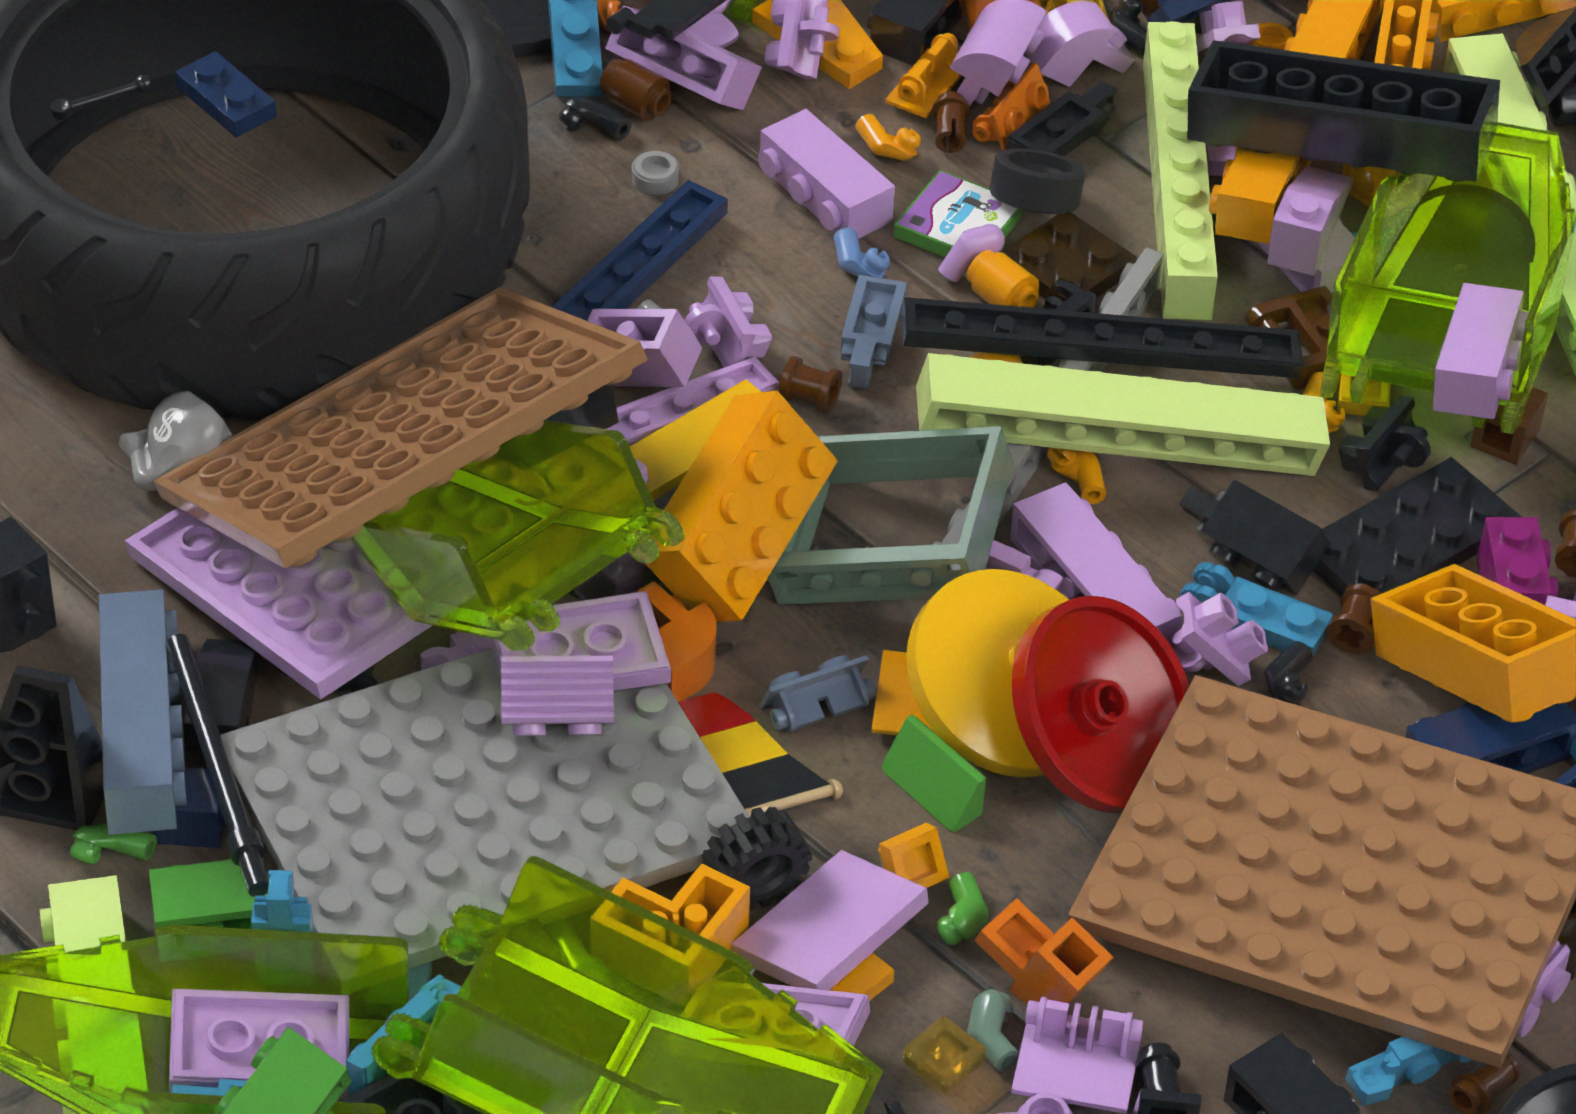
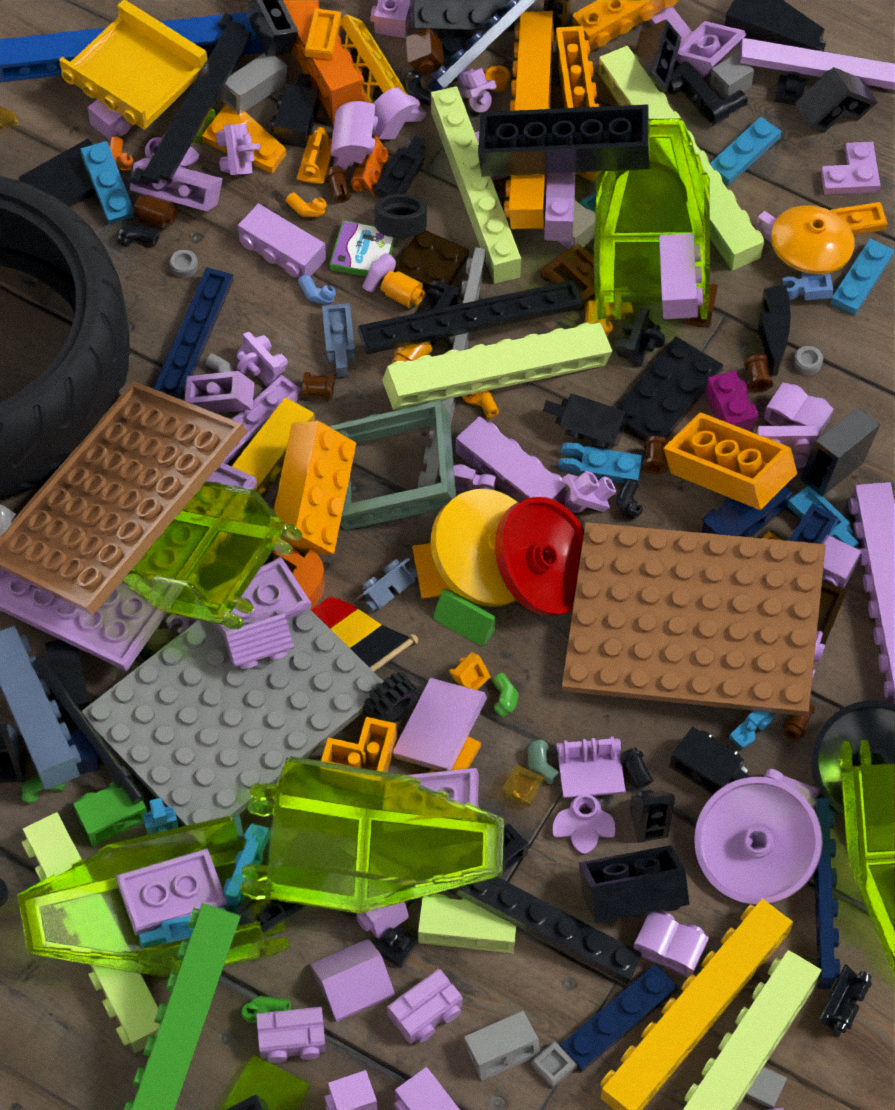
camera: 15 degrees left, 15 degrees up
(1038, 959) = (557, 718): orange brick -> none

